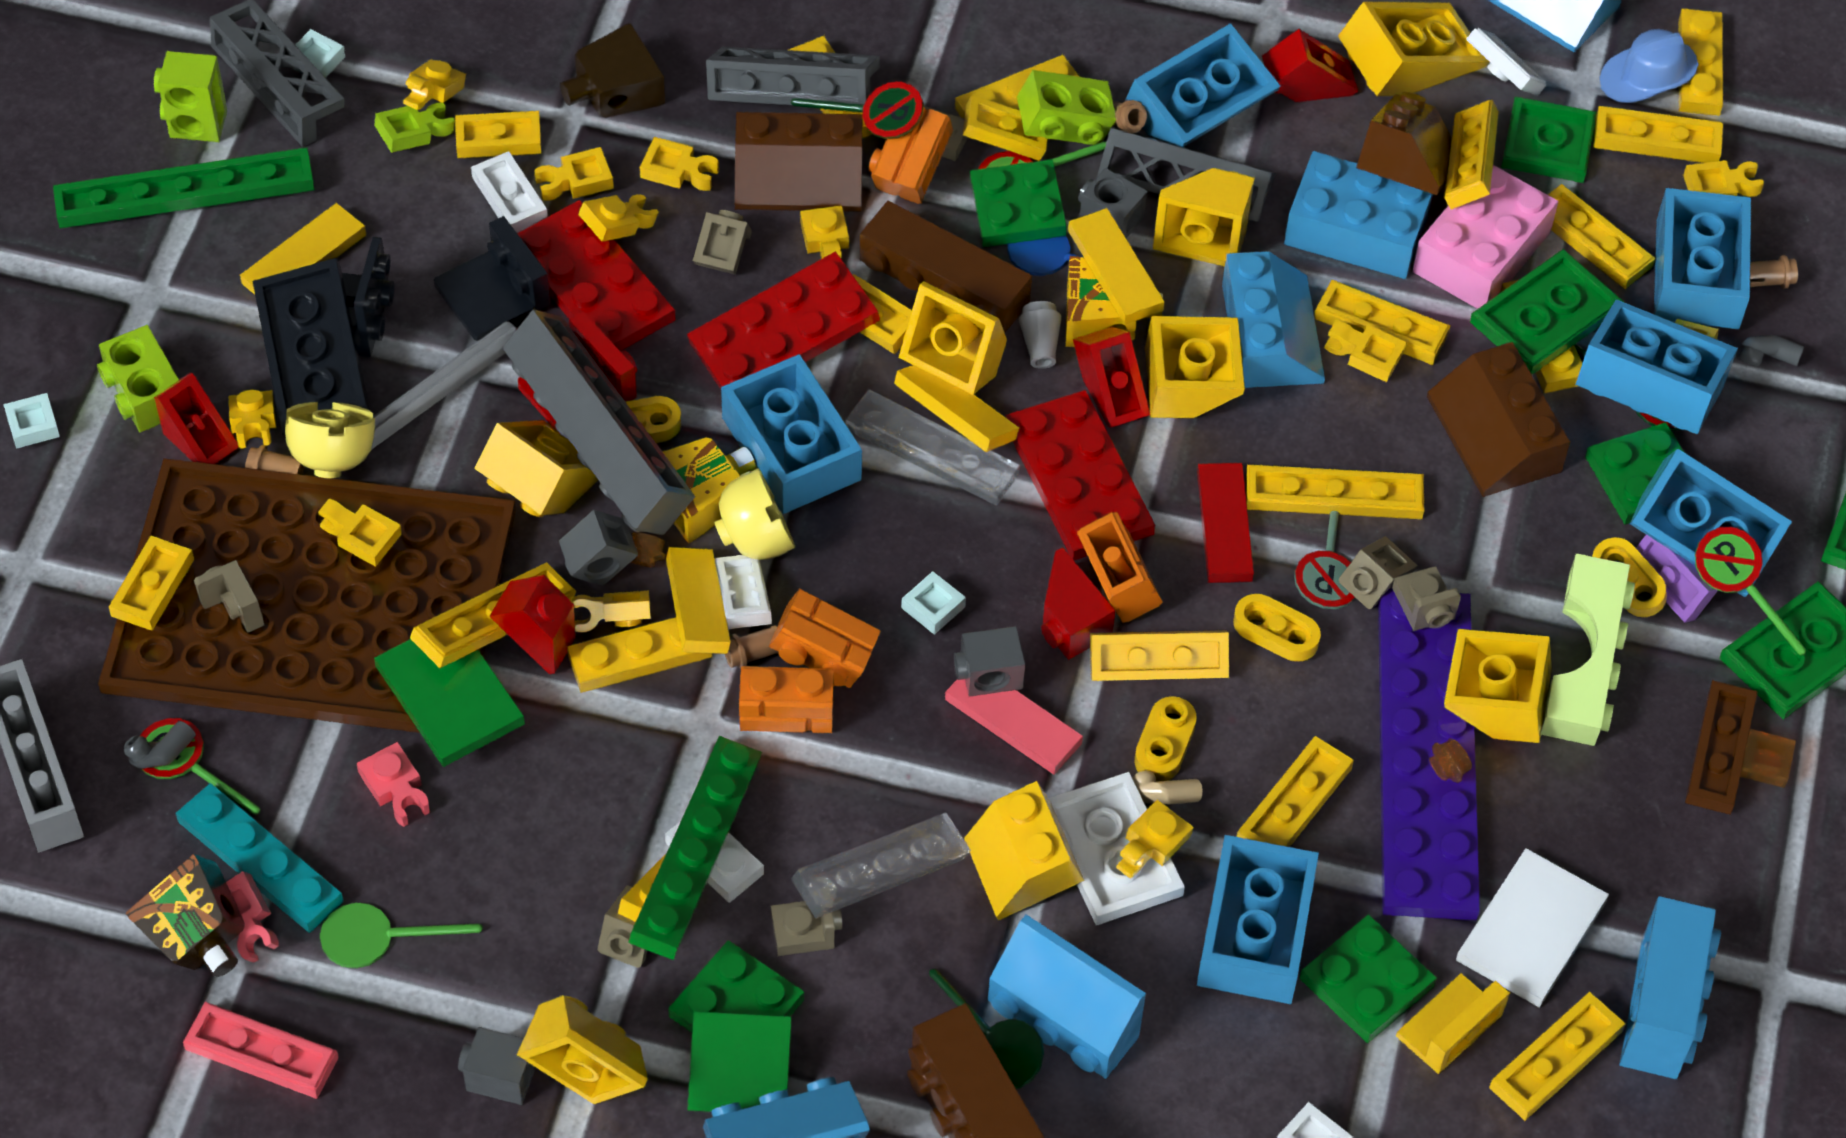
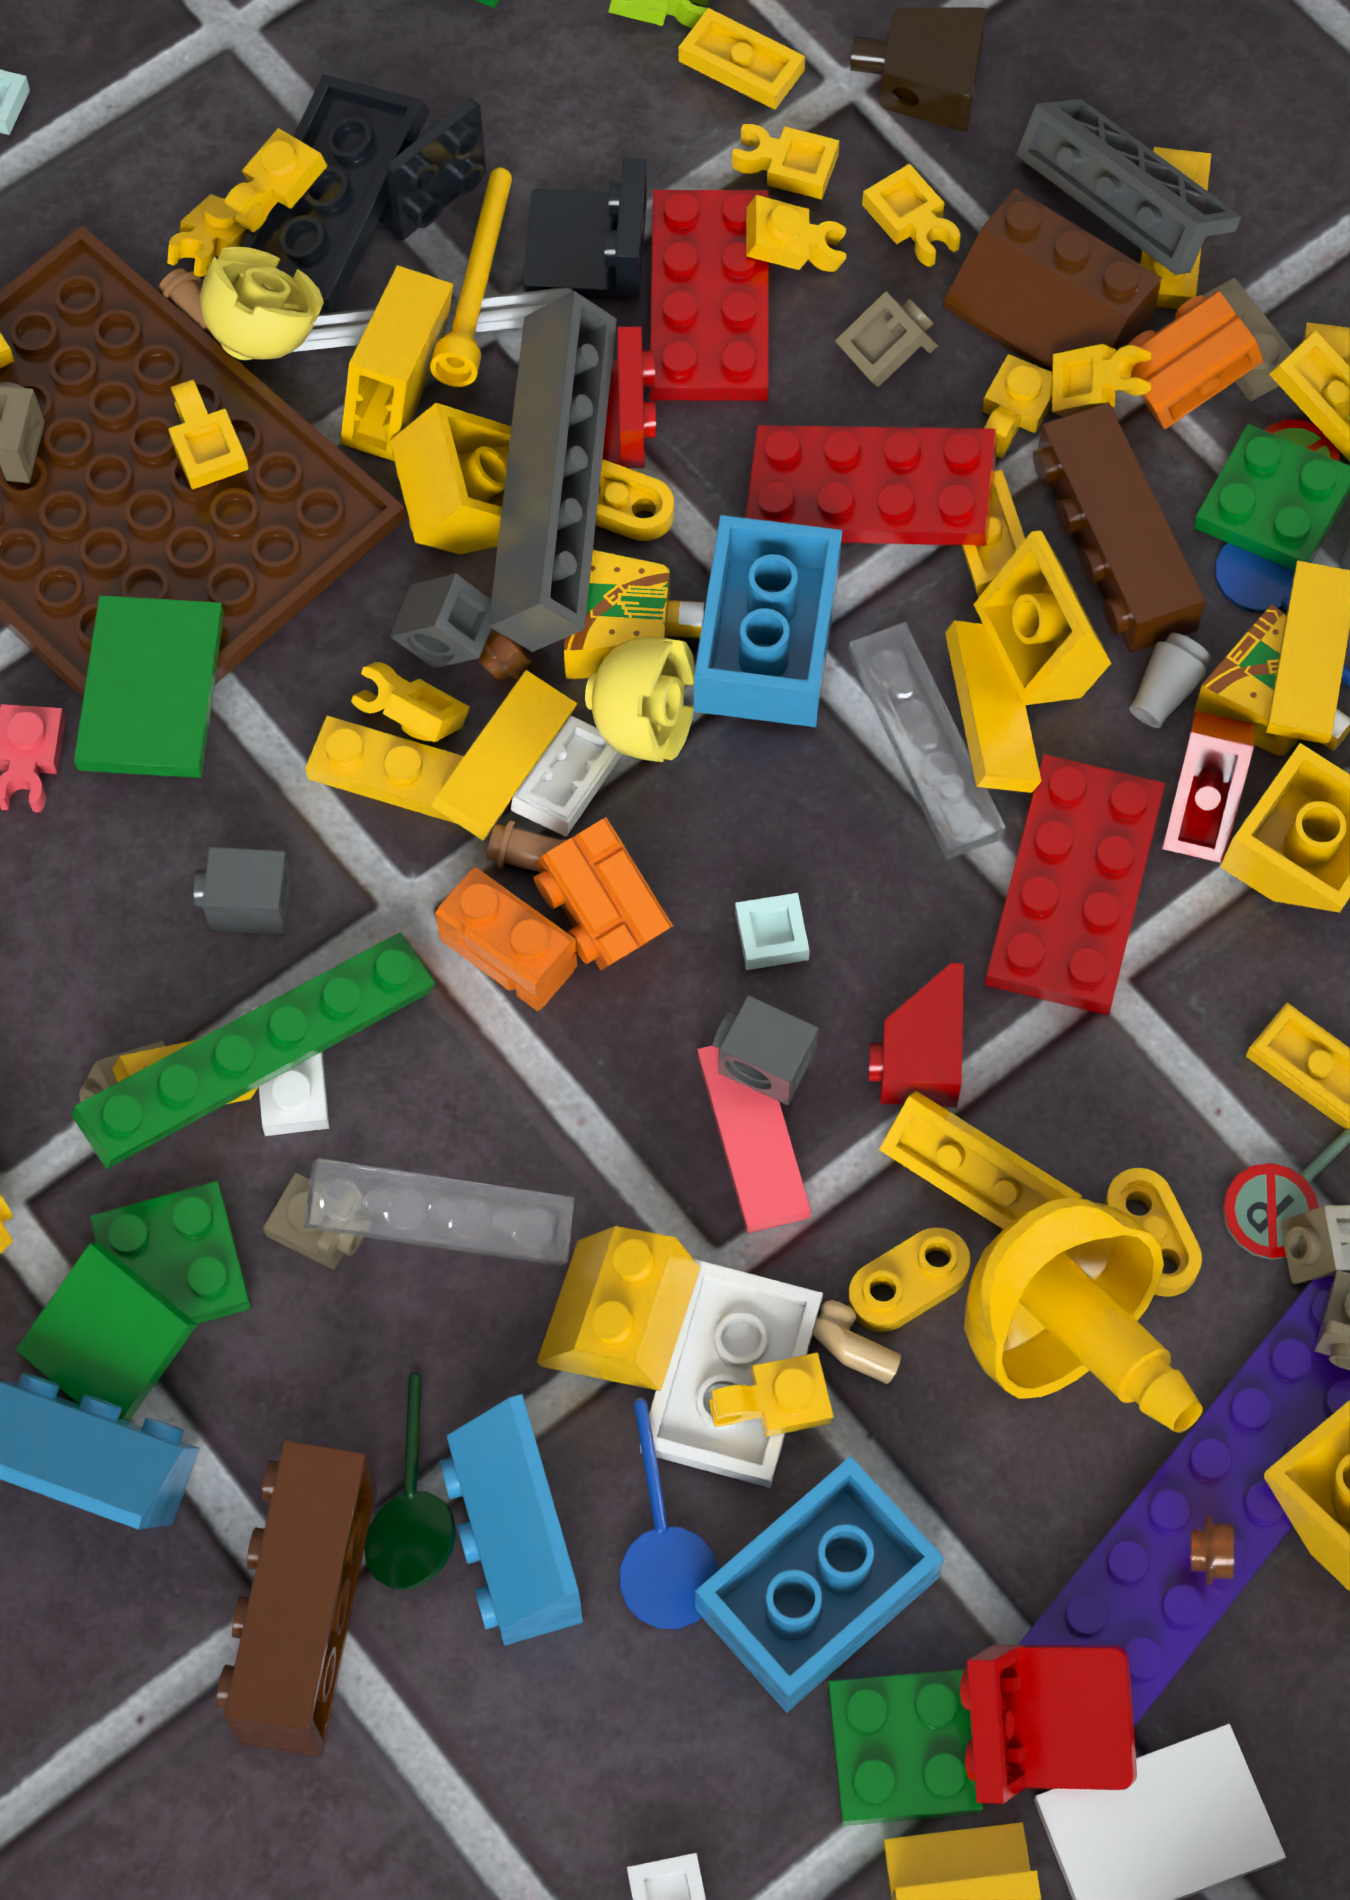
camera: 40 degrees right, 10 degrees up
(138, 373) = (135, 119): lime brick -> none
(194, 422) = (144, 201): red slope -> none
(273, 353) = (275, 174): none -> yellow plate
(316, 242) = (435, 72): yellow tile -> none
(443, 421) = (394, 360): none -> yellow slope
(469, 624) = (264, 627): yellow tile -> none
(477, 392) = (457, 353): none -> yellow piece
(509, 191) = (697, 136): white plate -> none
(537, 619) = (300, 667): red slope -> none
(605, 771) = (244, 890): none -> dark grey brick
(864, 194) = (1093, 374): none -> yellow plate
(887, 113) = (1189, 293): piece -> none
(1119, 567) = (1015, 1033): orange brick -> none
(1161, 972) = (666, 1562): none -> blue piece
(1225, 523) = (1202, 1057): red tile -> none
(1264, 682) = (1065, 1300): none -> yellow piece
(1298, 795) = (996, 1463): yellow plate -> none
(1440, 900) = (1048, 1719): none -> red bracket

